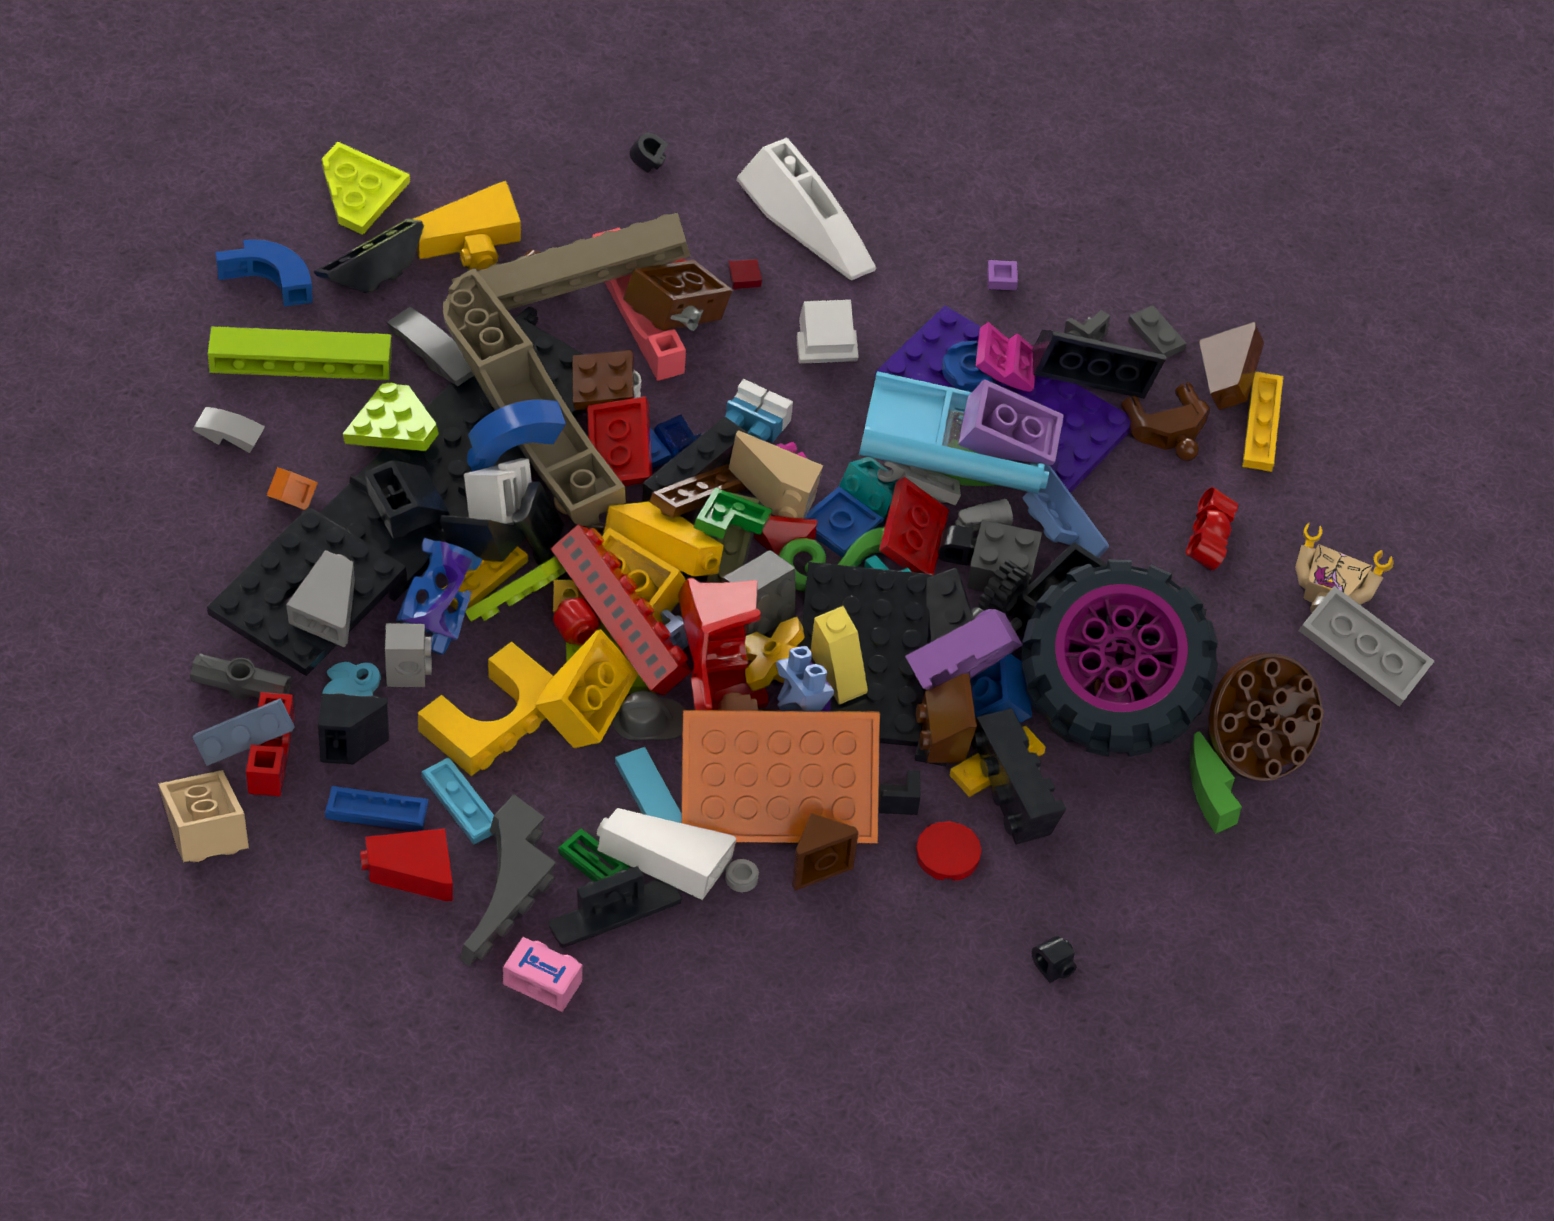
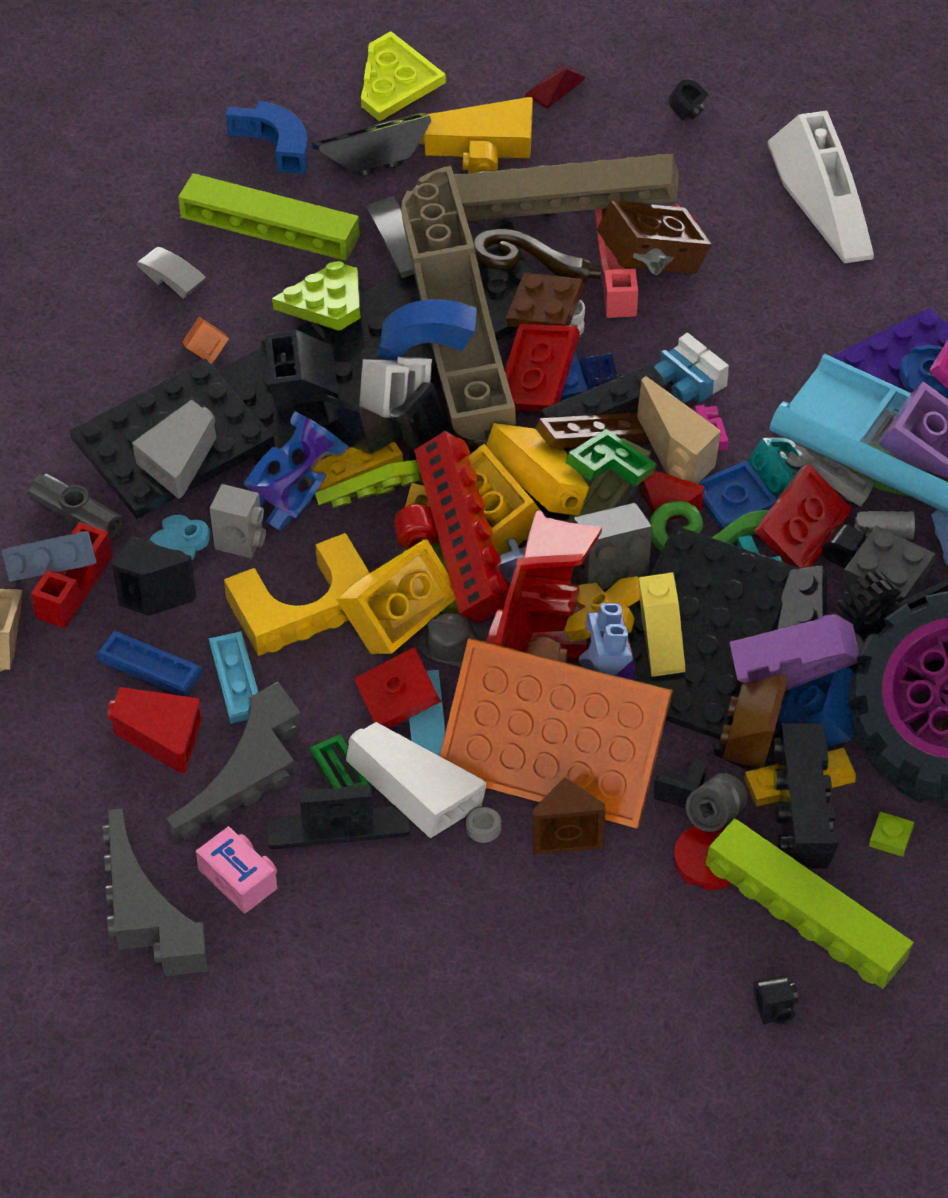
camera: 25 degrees right, 0 degrees up
(474, 1035) = (143, 914): none -> dark grey arch
(514, 163) = (555, 86): none -> dark red slope
(596, 338) = (510, 240): none -> dark brown plant
(617, 774) = (397, 689): none -> red plate
(745, 274) = (738, 234): dark red tile -> none
(826, 332) = (794, 307): white plate -> none
(941, 801) = (716, 802): none -> dark grey wheel
(1051, 868) = (808, 903): none -> lime brick
(1093, 790) = (891, 834): none -> lime plate

